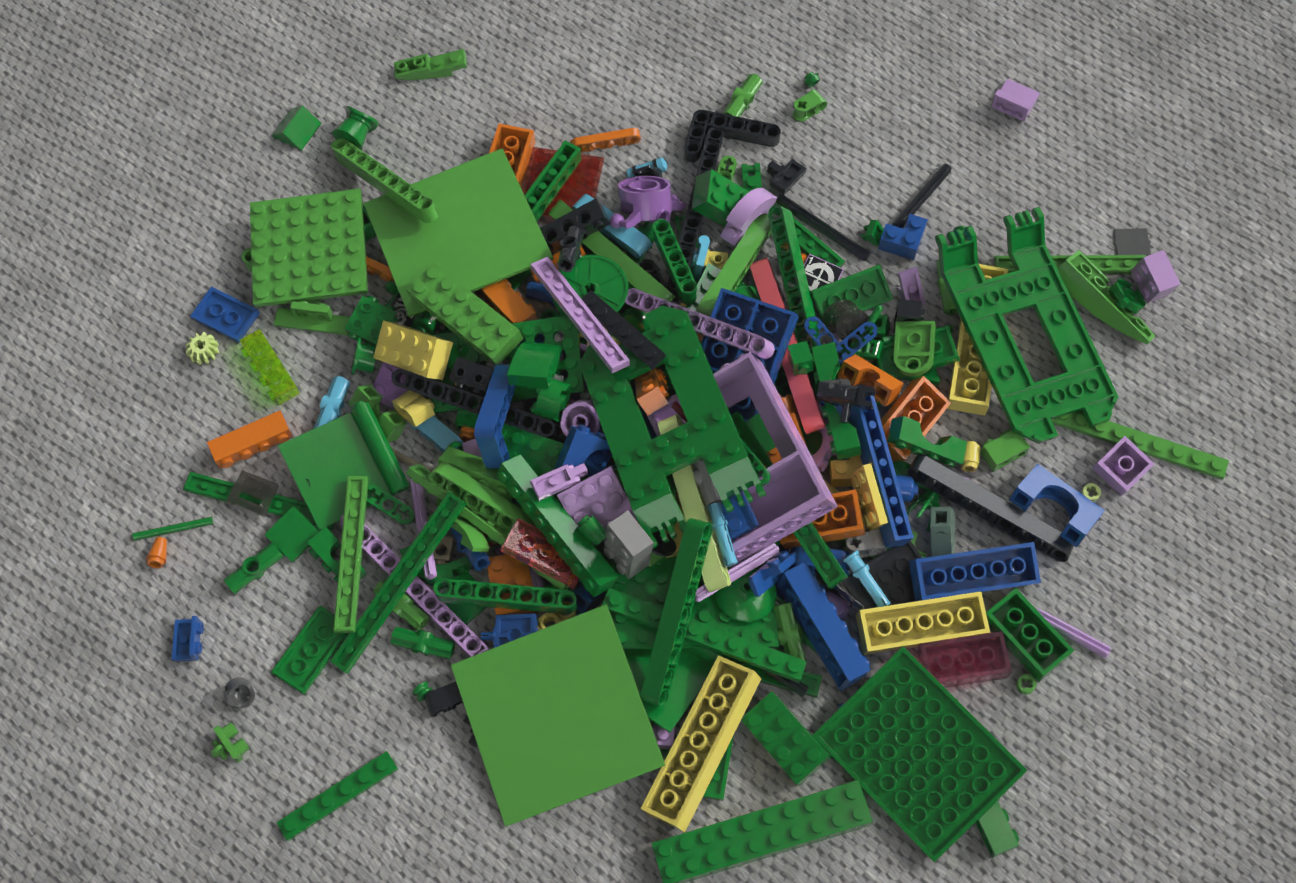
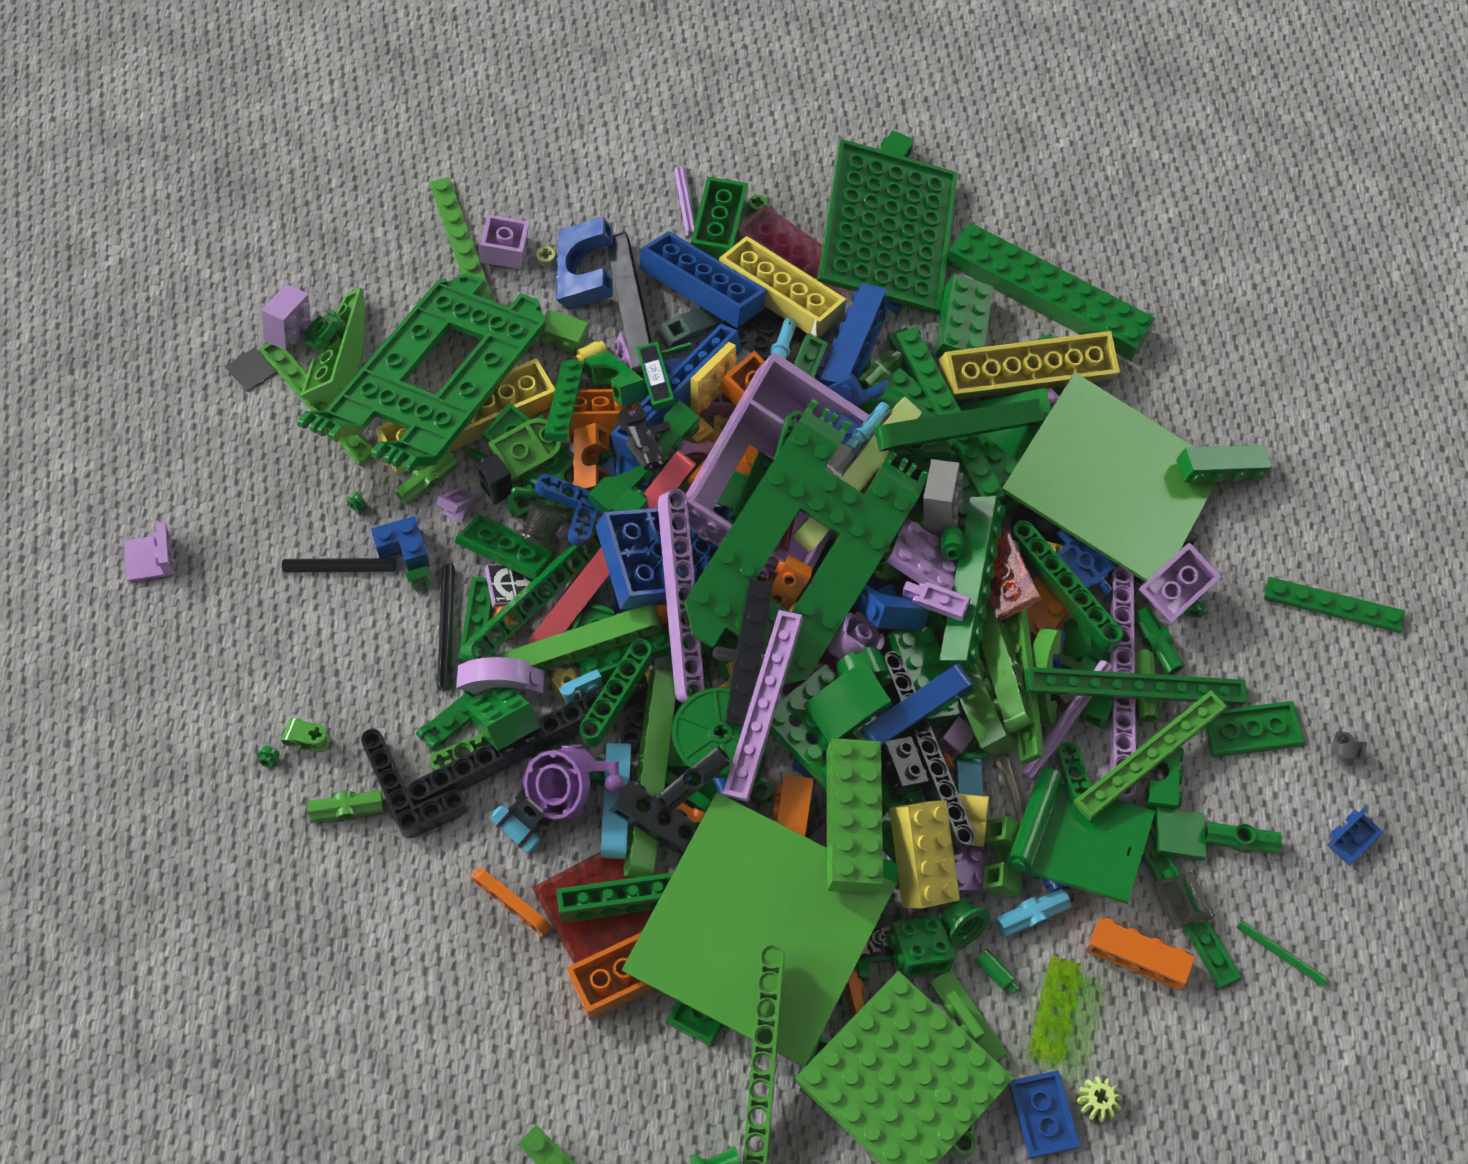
camera: 135 degrees left, 5 degrees down
(157, 555) = (1317, 939): orange cone -> none
(235, 750) = (1395, 722): bright green hips -> none
(321, 358) = (997, 971): none -> green cylinder
(439, 677) = (1179, 582): none -> lavender slope
(501, 814) = (1224, 463): none -> brick
(785, 176) = (412, 697): black hinge -> none
(897, 452) = (655, 376): none -> tile
(931, 391) = (564, 401): none -> green plate

